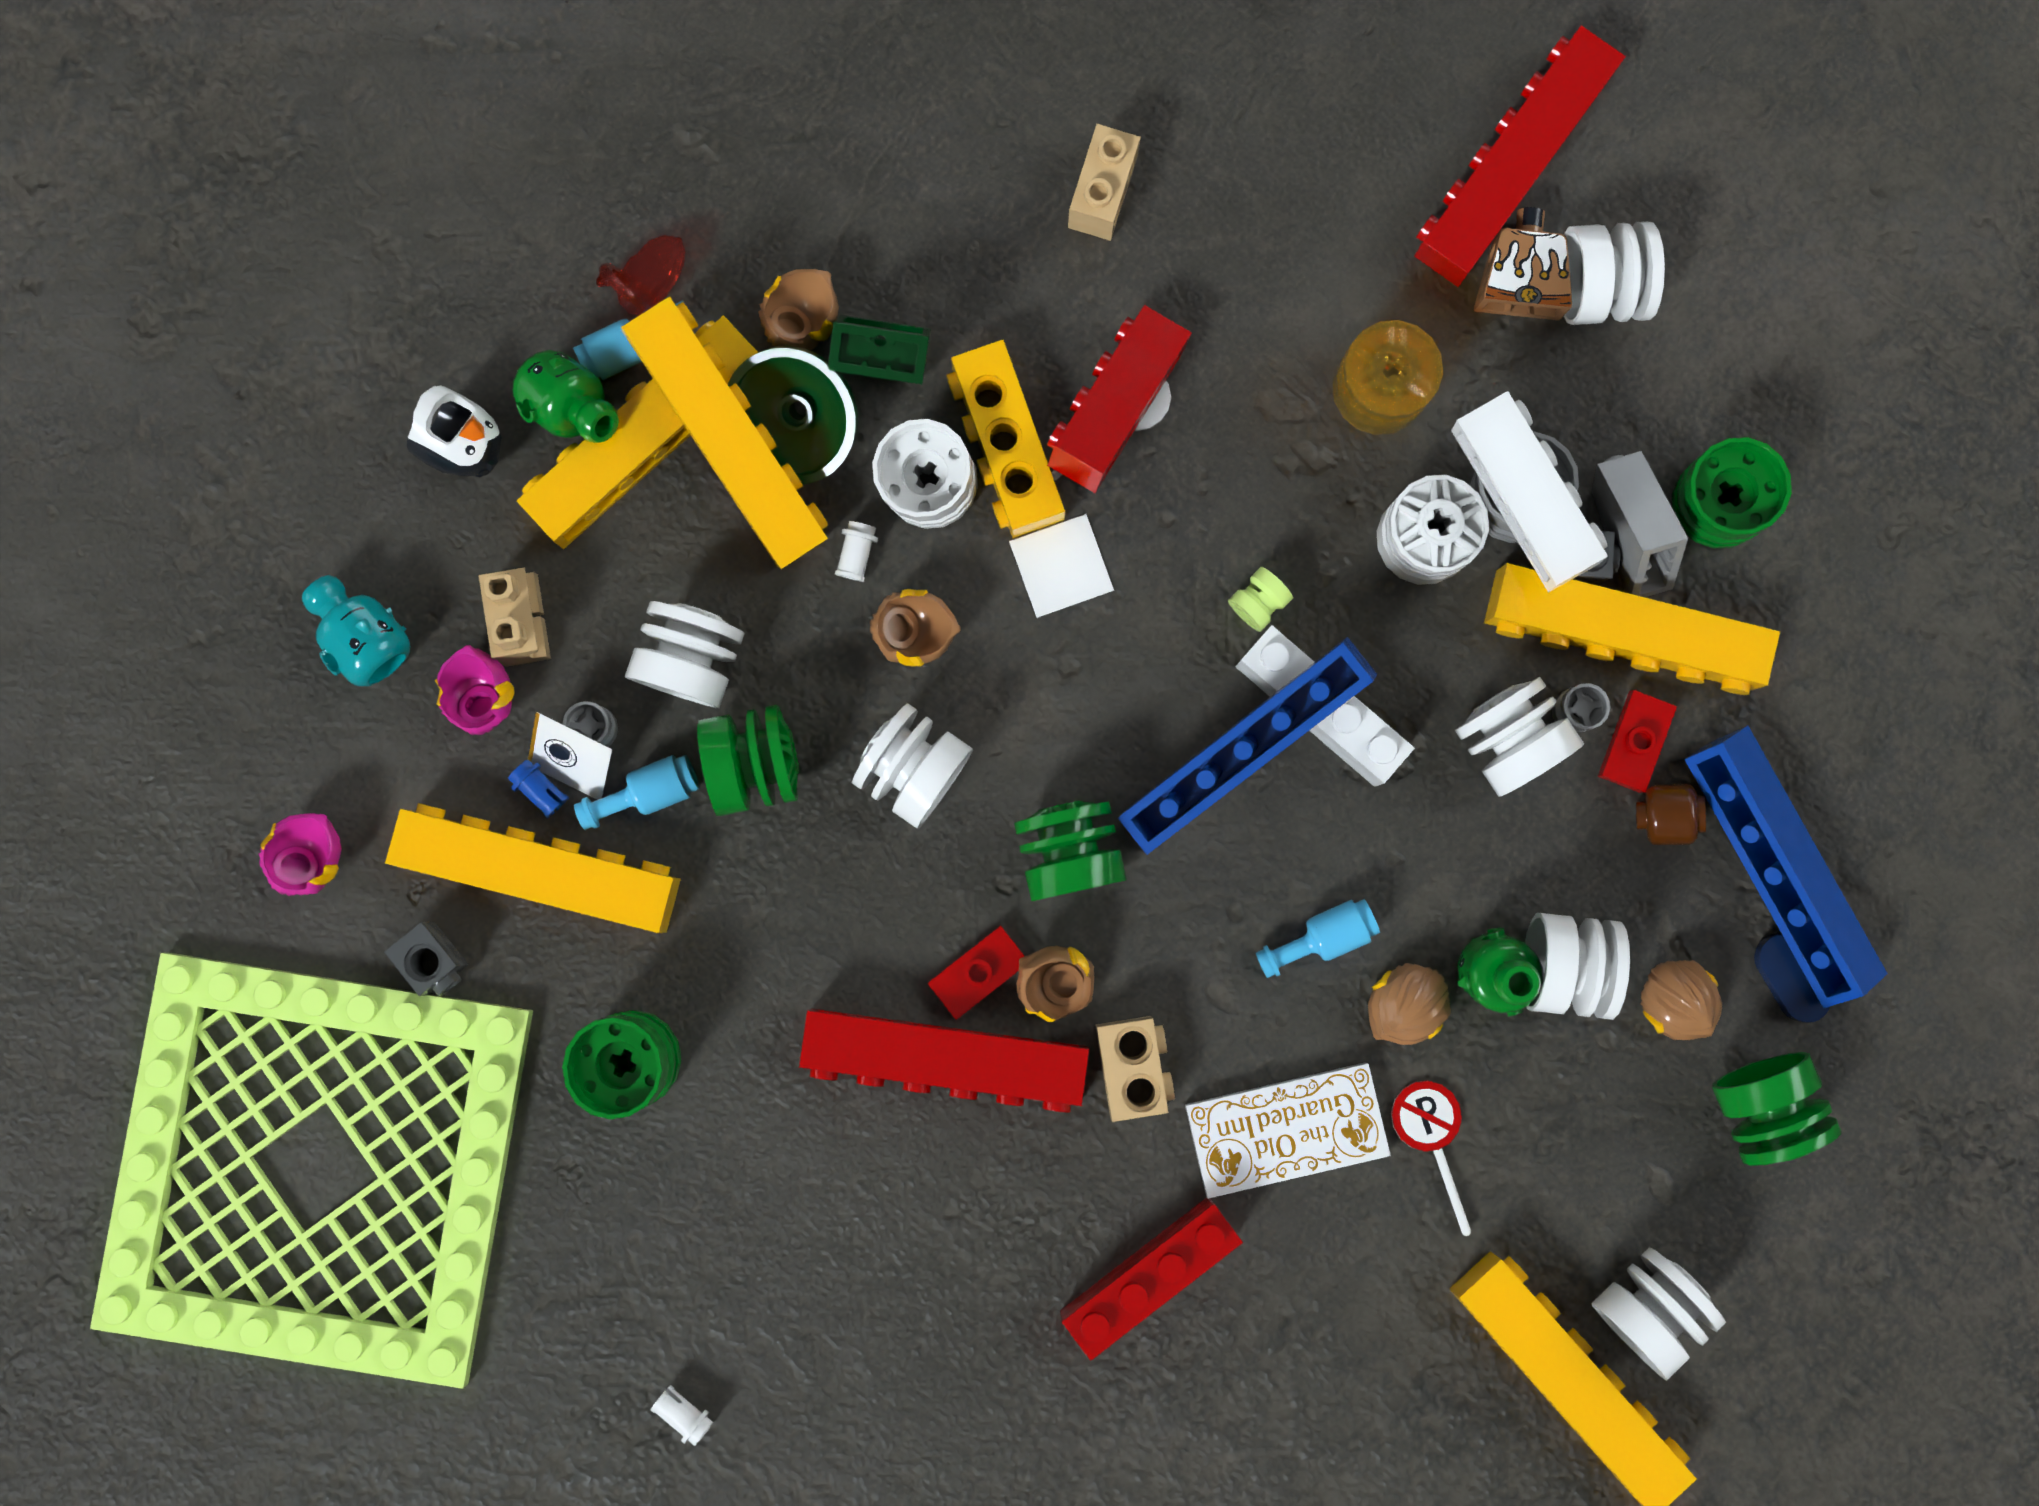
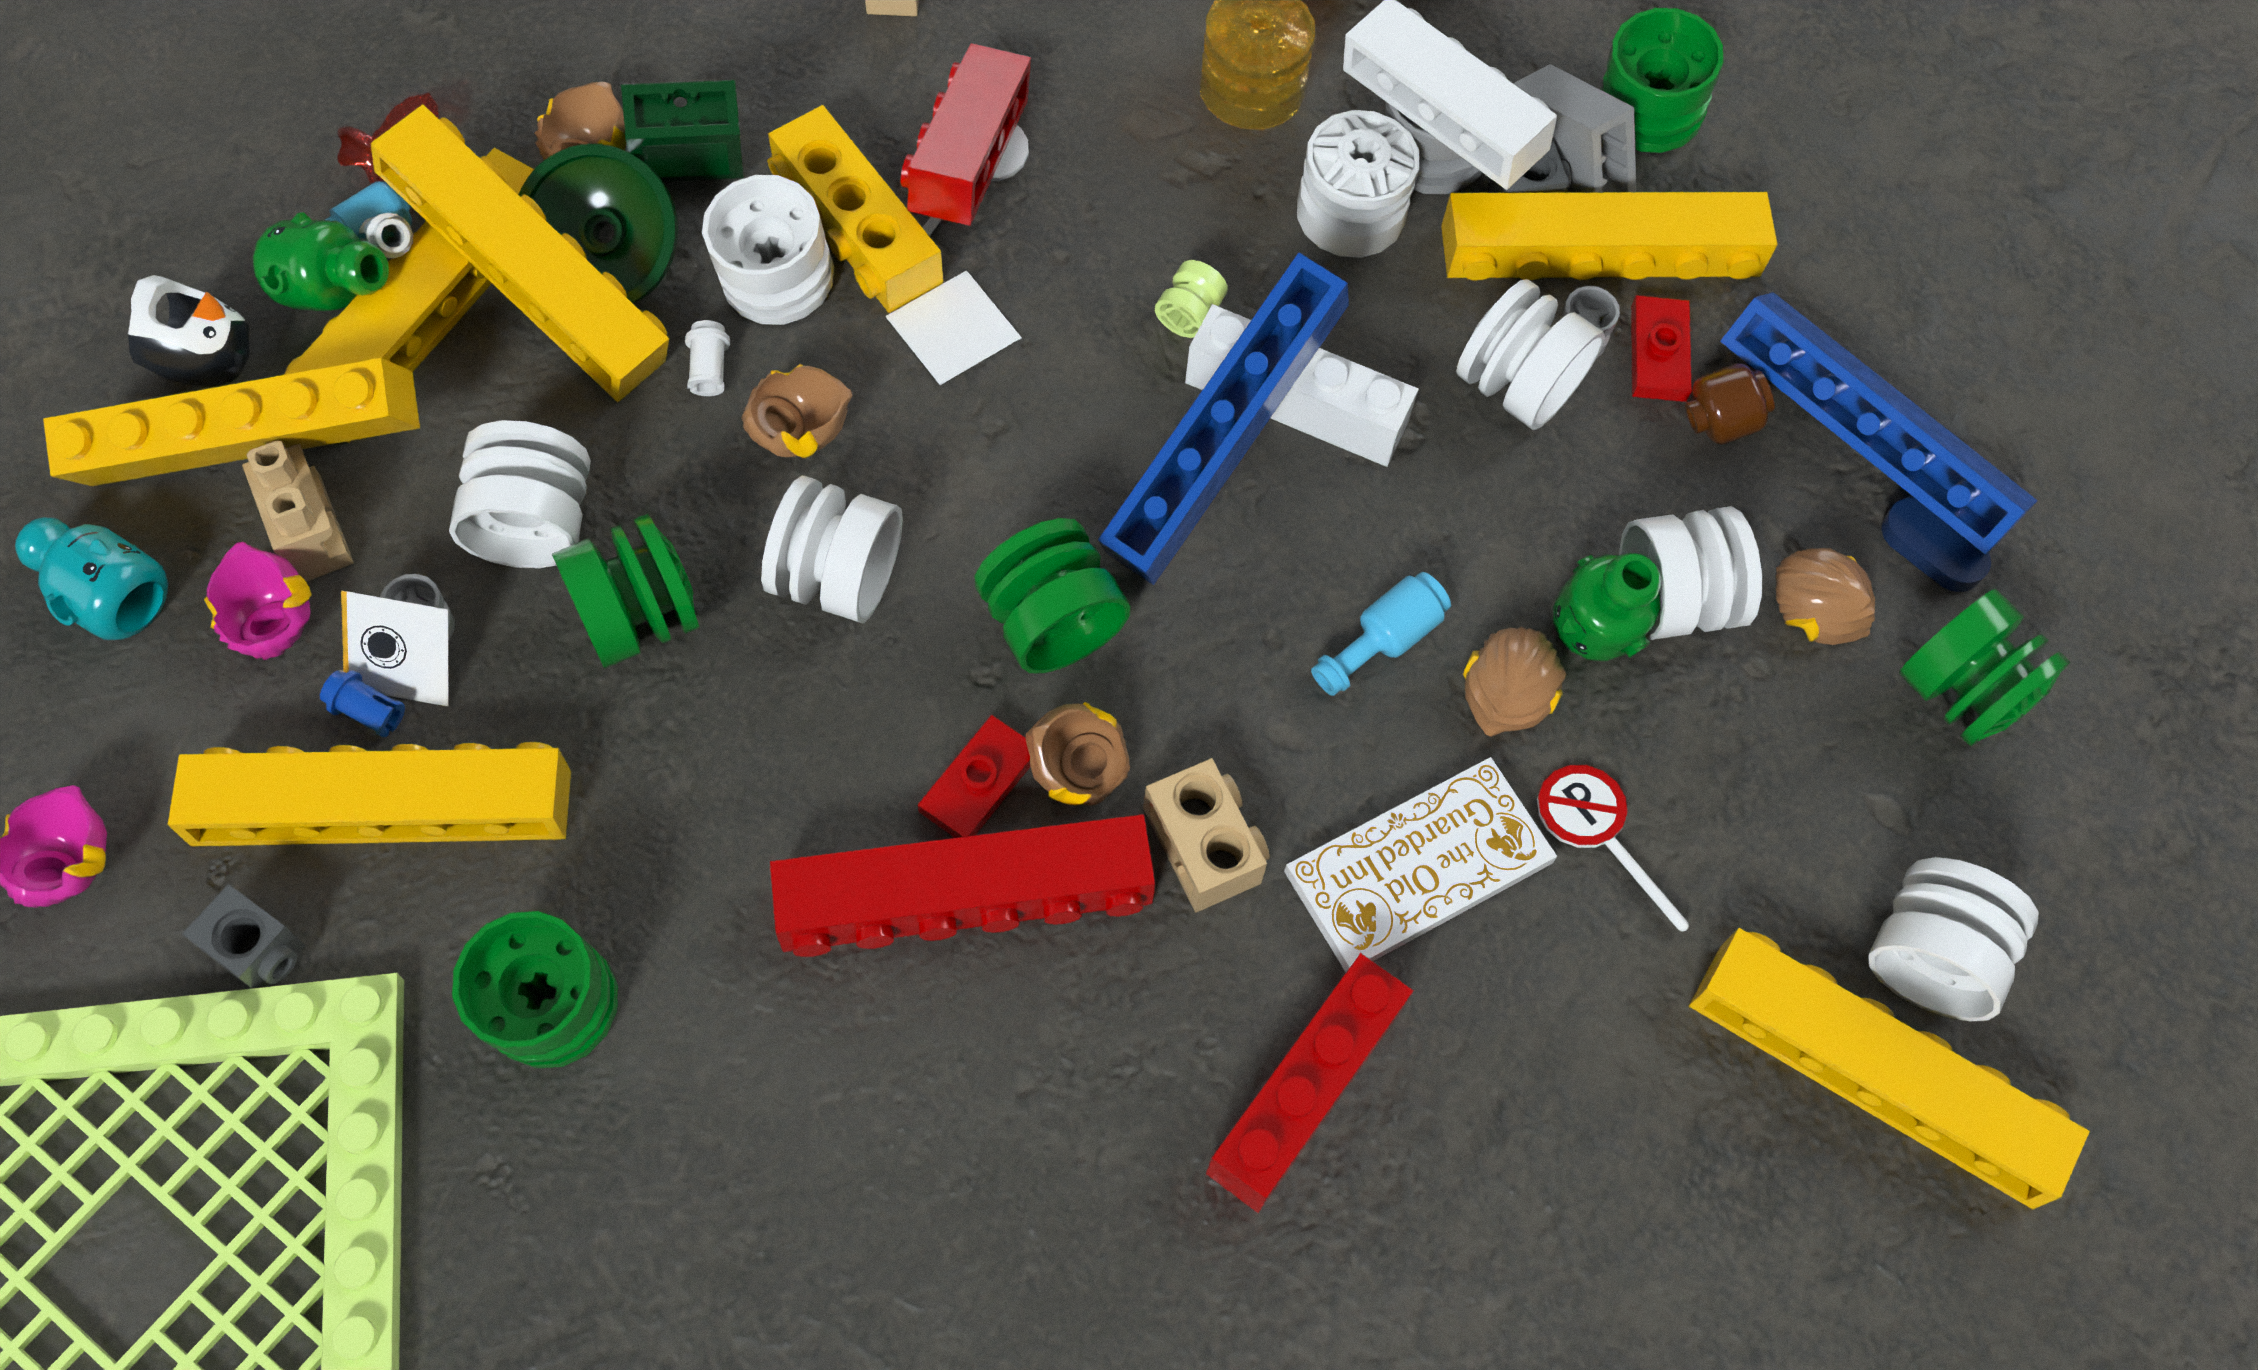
camera: 20 degrees left, 20 degrees down
(477, 538) = (230, 421): none -> yellow brick
(622, 387) = (396, 245): none -> white pin
(647, 789) = (504, 667): medium azure piece -> none

